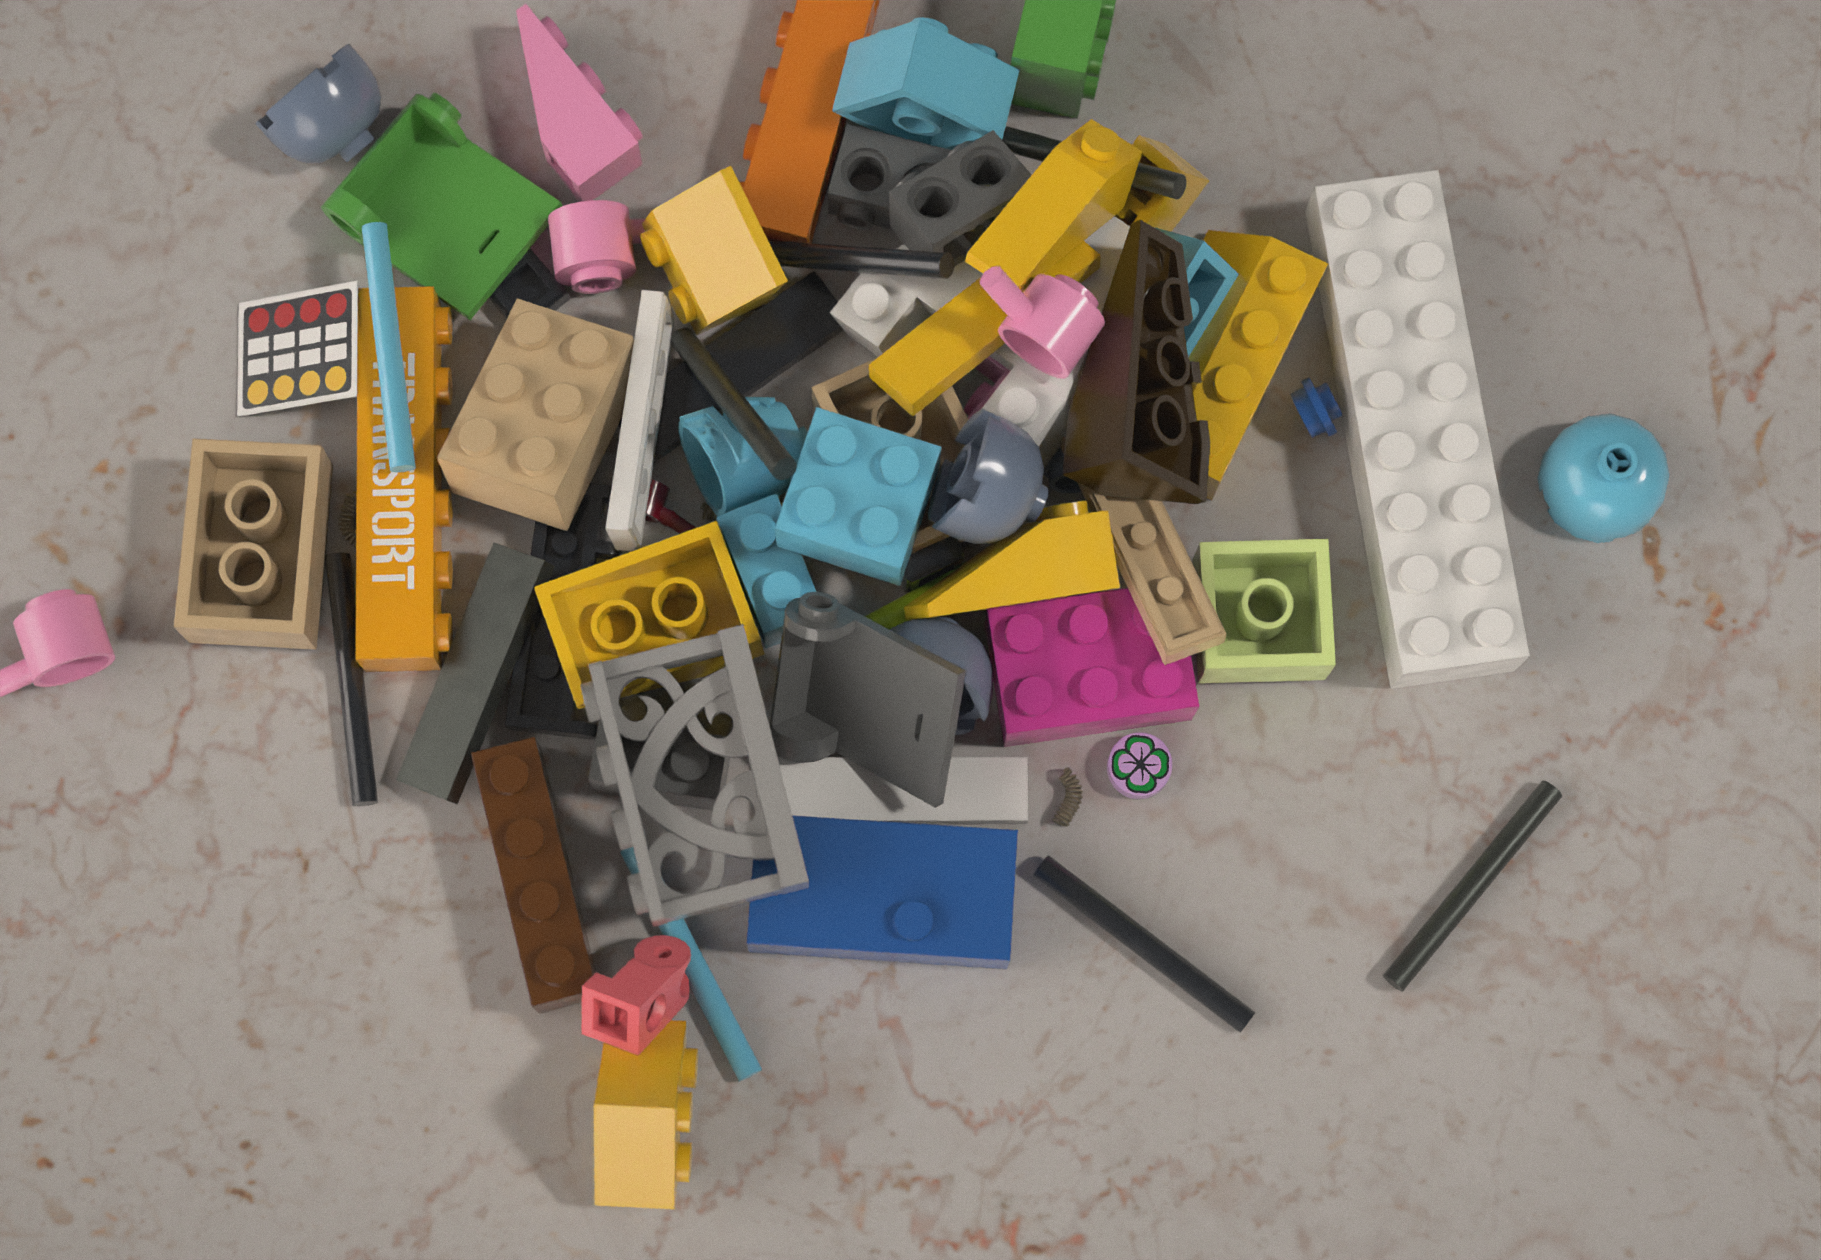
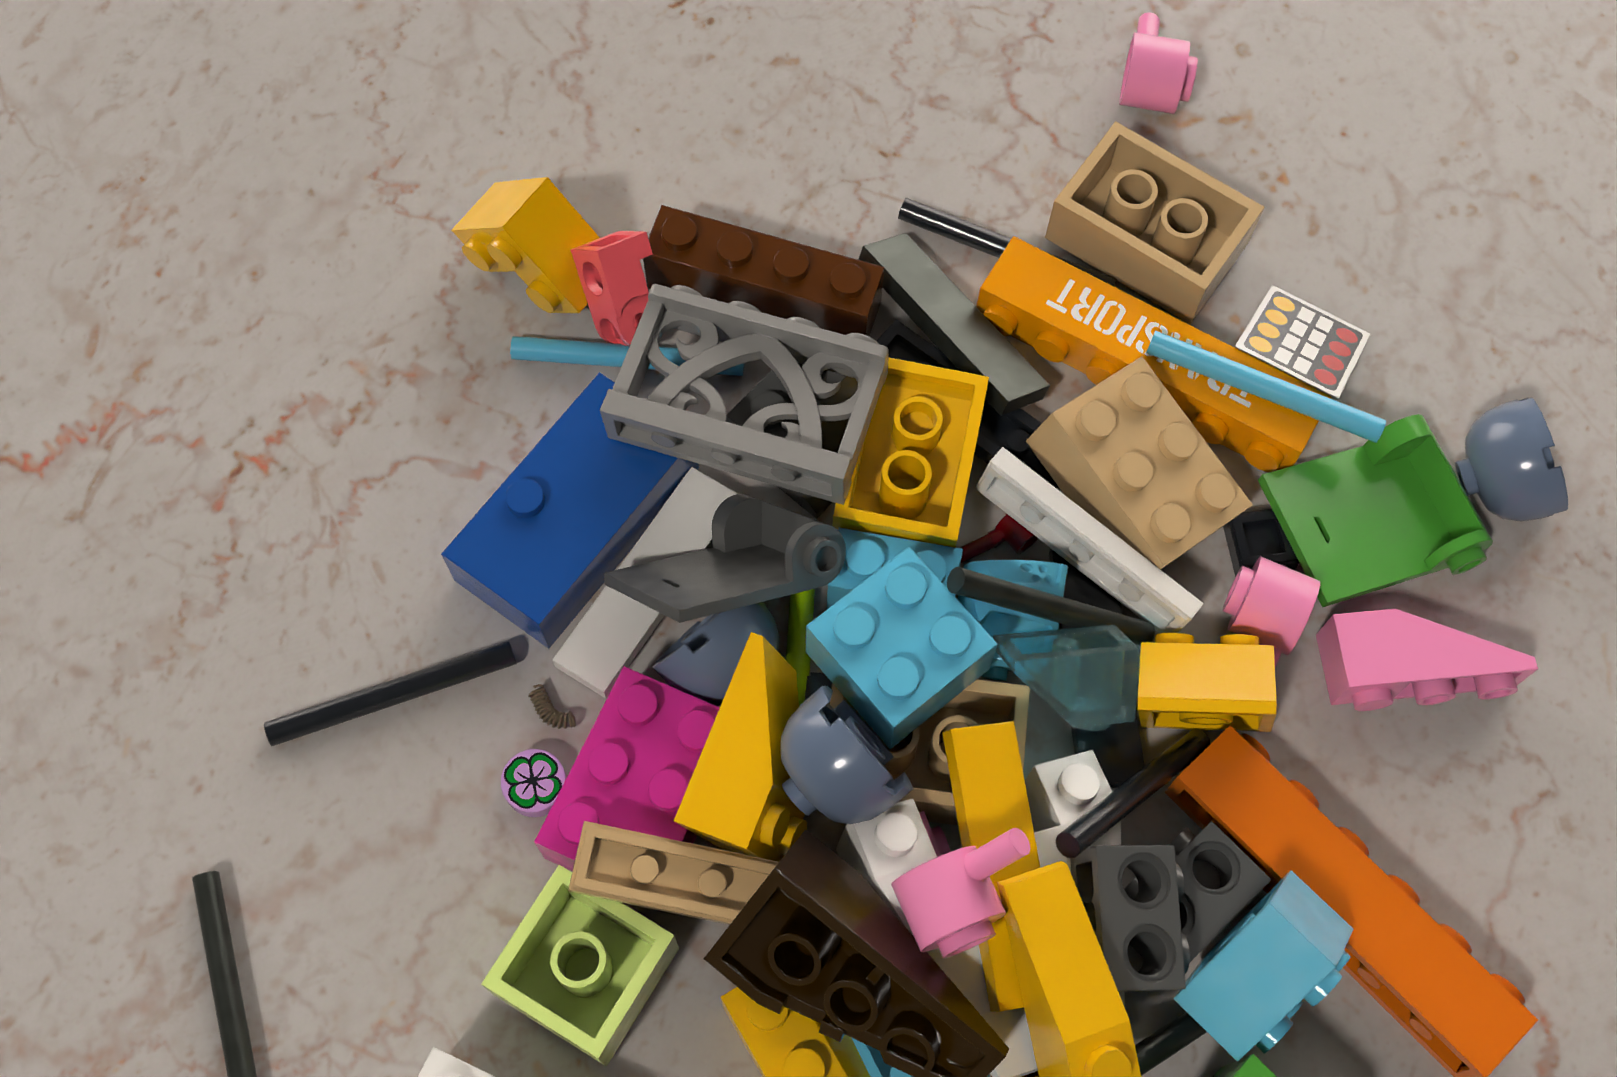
camera: 125 degrees right, 10 degrees down
(773, 359) = (1078, 672): none -> clear light blue slope

